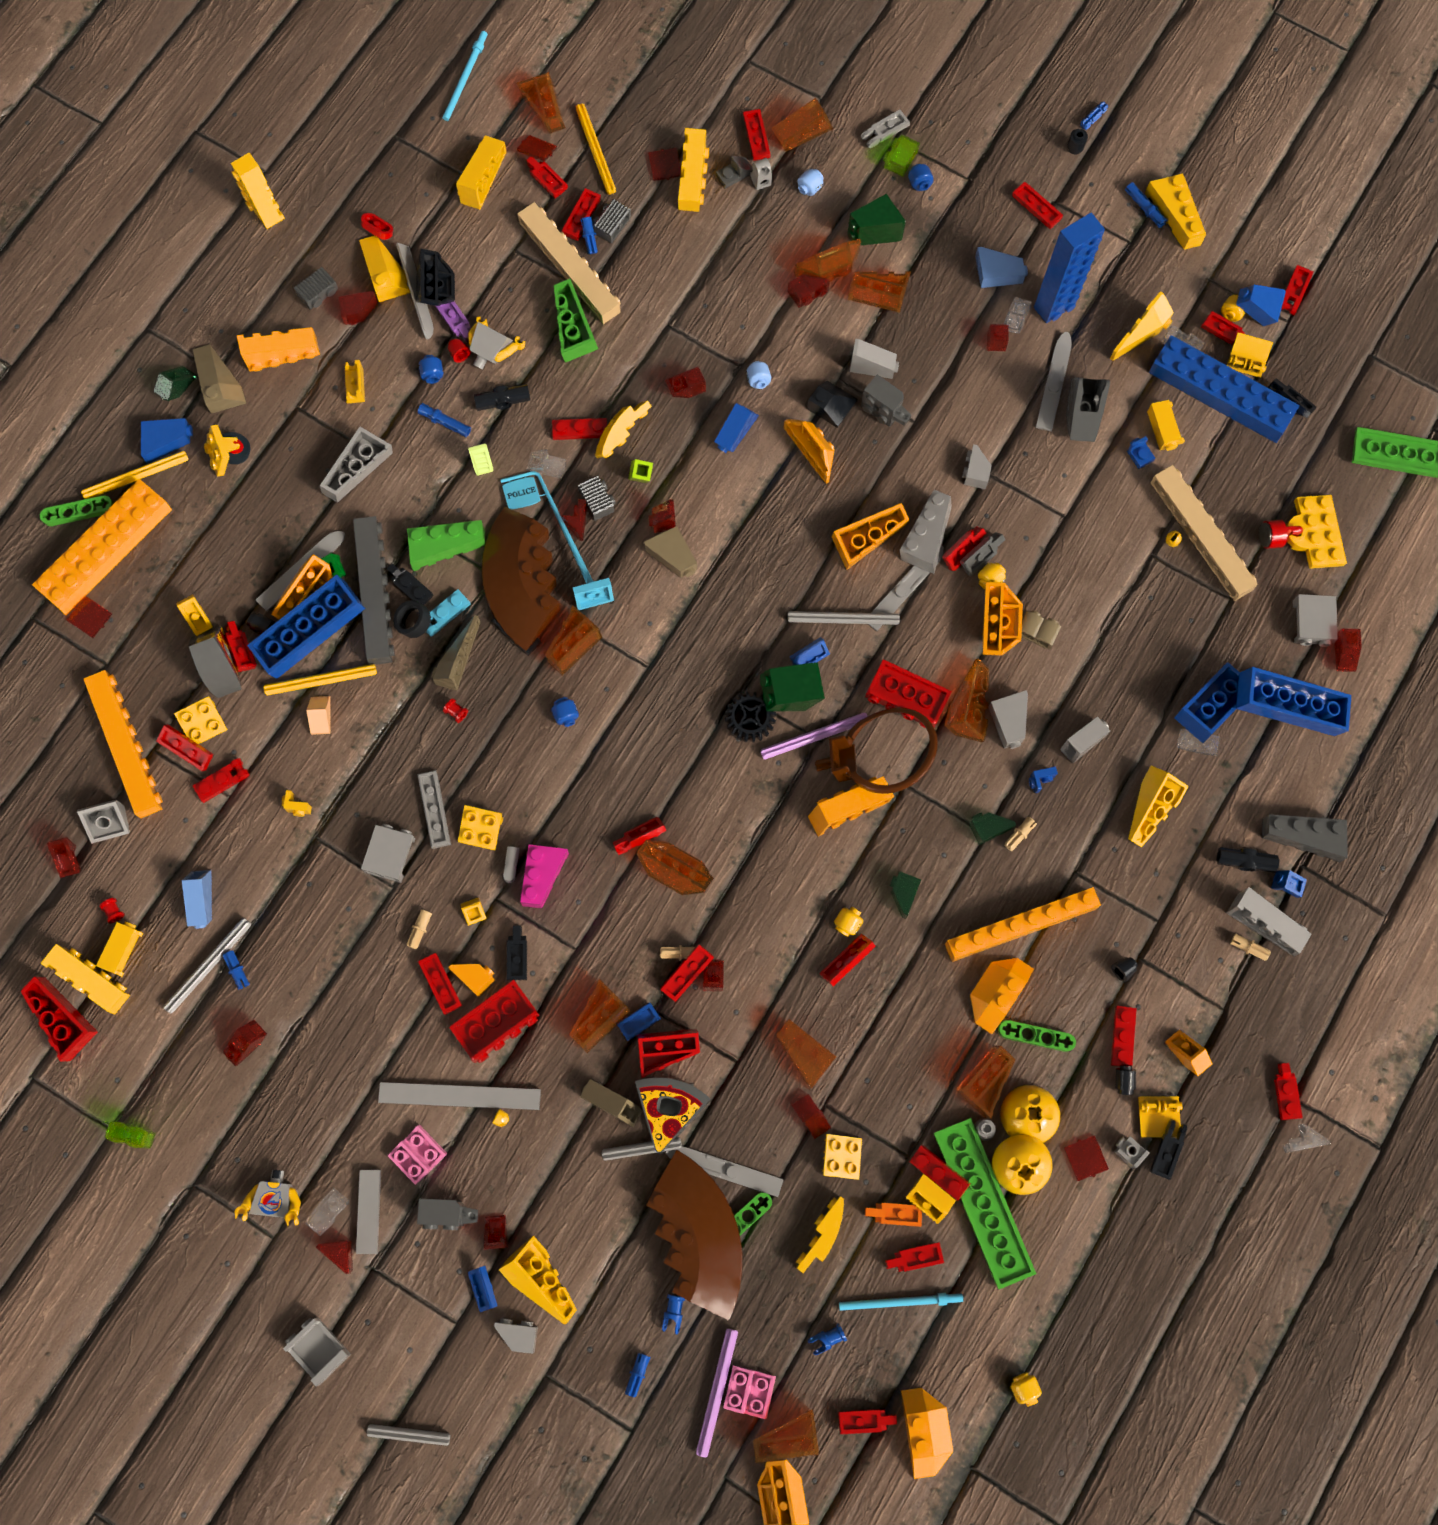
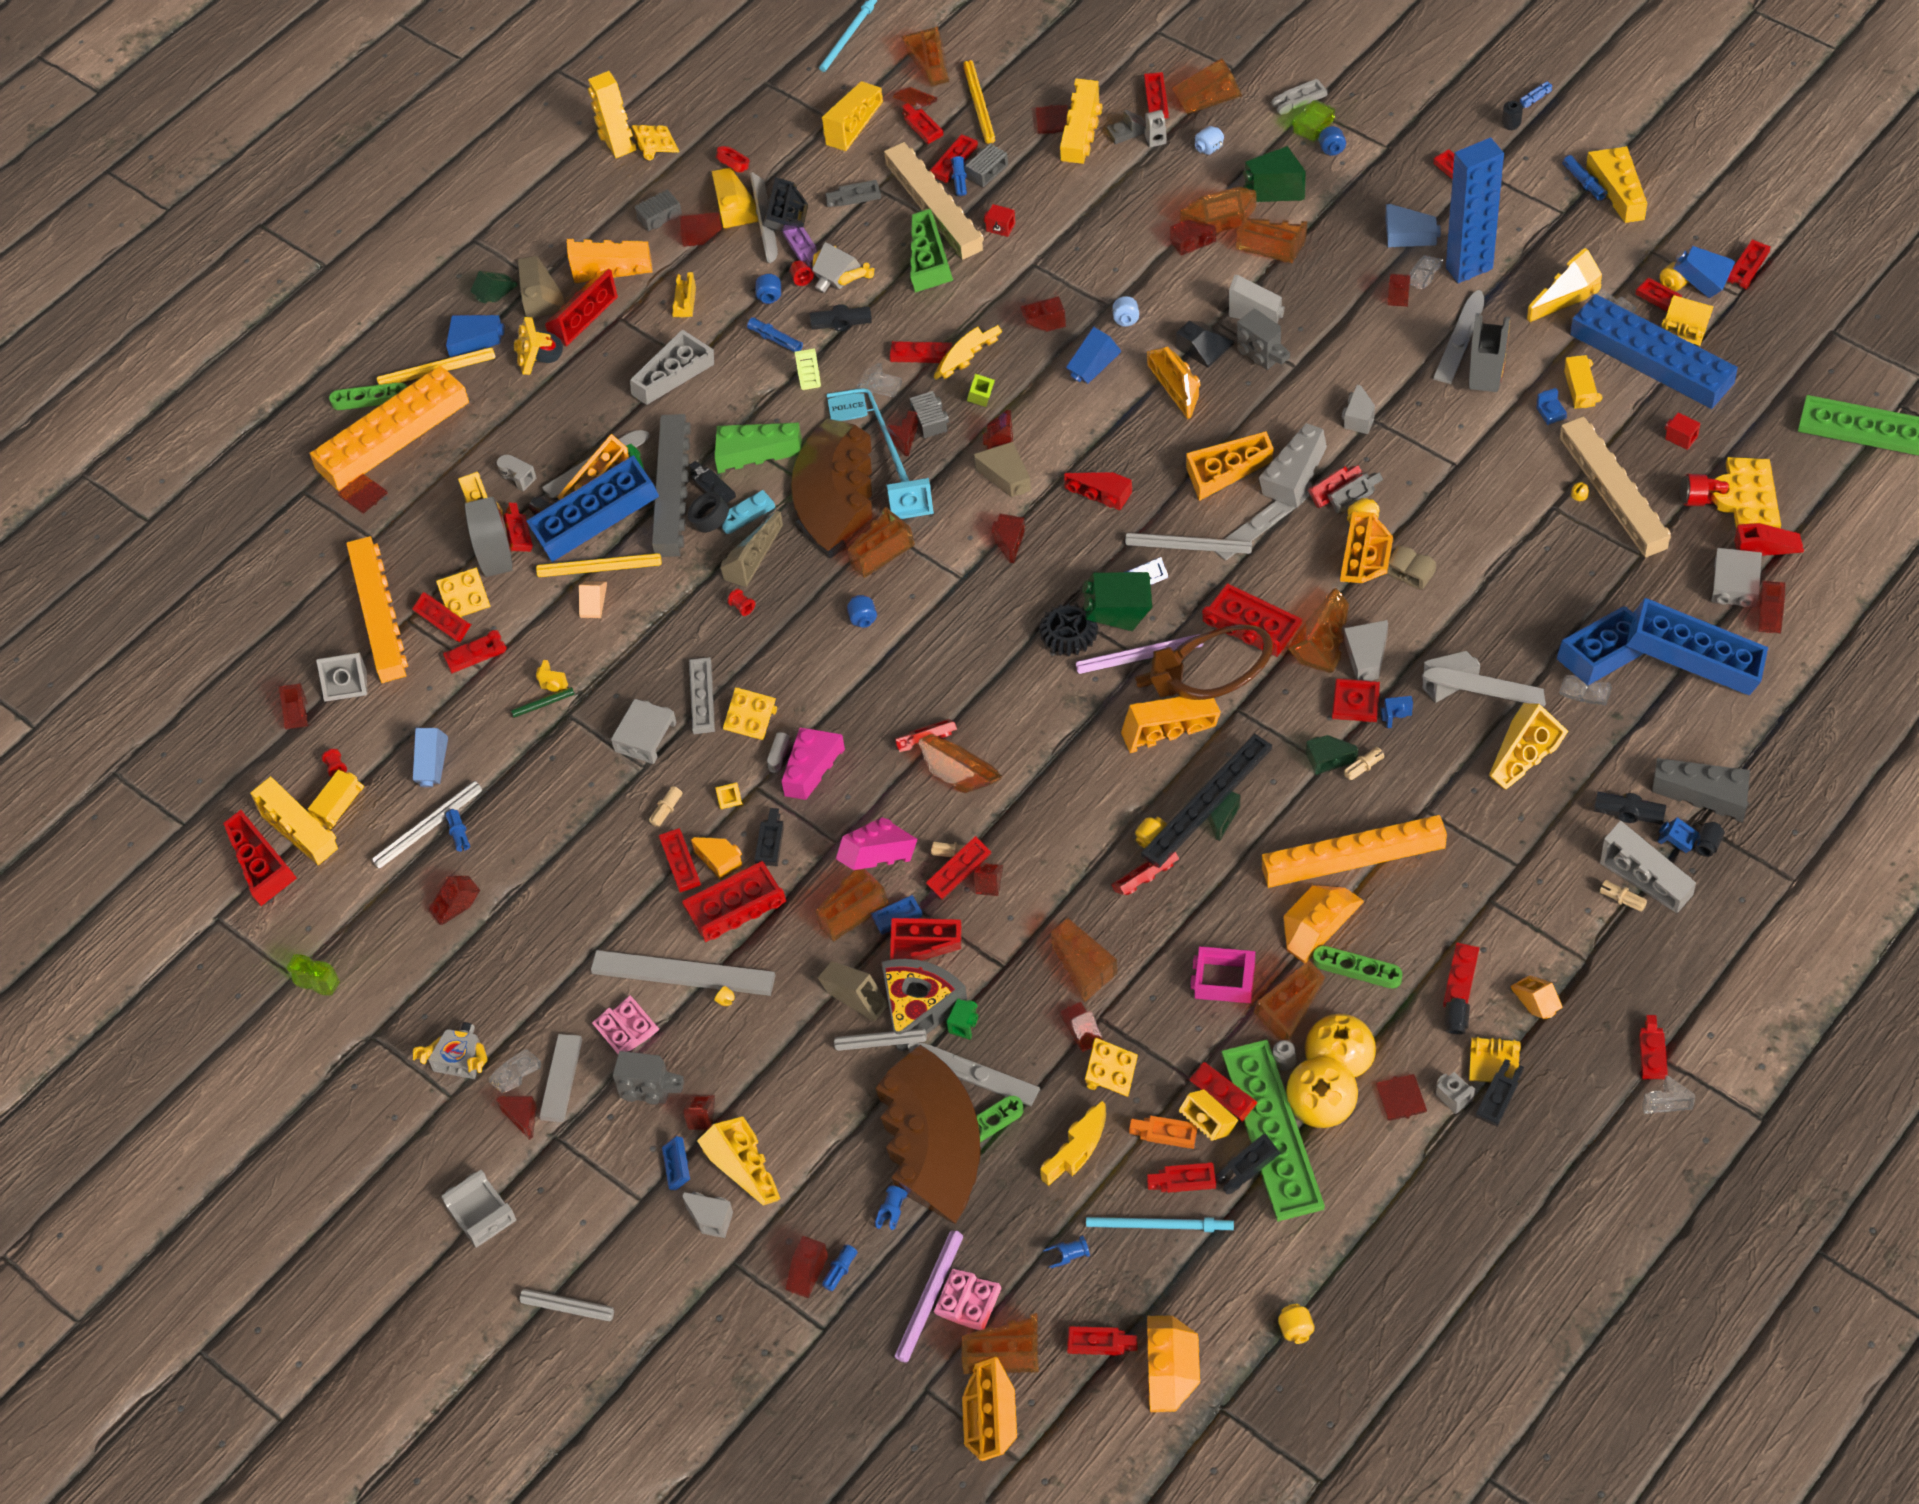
camera: 15 degrees right, 20 degrees down
(229, 584) = (516, 470): none -> light grey leg
(261, 403) = (583, 307): none -> red slope
(291, 828) = (542, 702): none -> dark green bar
(300, 208) = (654, 139): none -> yellow hinge
(495, 259) = (854, 194): none -> dark grey hinge
(609, 1378) = (806, 1266): none -> clear red slope
(612, 960) = (875, 844): none -> dark pink wedge
(632, 281) = (1000, 220): none -> red brick
(684, 622) = (1009, 534): none -> clear red slope
(710, 1120) = (962, 1018): none -> green brick
(761, 565) = (1100, 486): none -> red slope
(893, 889) = (1206, 801): none -> black tile
(947, 1054) = (1224, 957): none -> dark pink window
(971, 1241) = (1247, 1163): none -> black hinge
(1006, 769) = (1356, 700): none -> red plate
(1118, 753) = (1485, 685): none -> light grey piece
(1124, 968) = (1469, 905): black hat -> none
(1255, 470) = (1682, 430): none -> red brick
(1306, 407) = (1744, 372): black hinge -> none
(1316, 885) = (1709, 839): none -> black brick
(1337, 581) = (1767, 539): none -> red slope

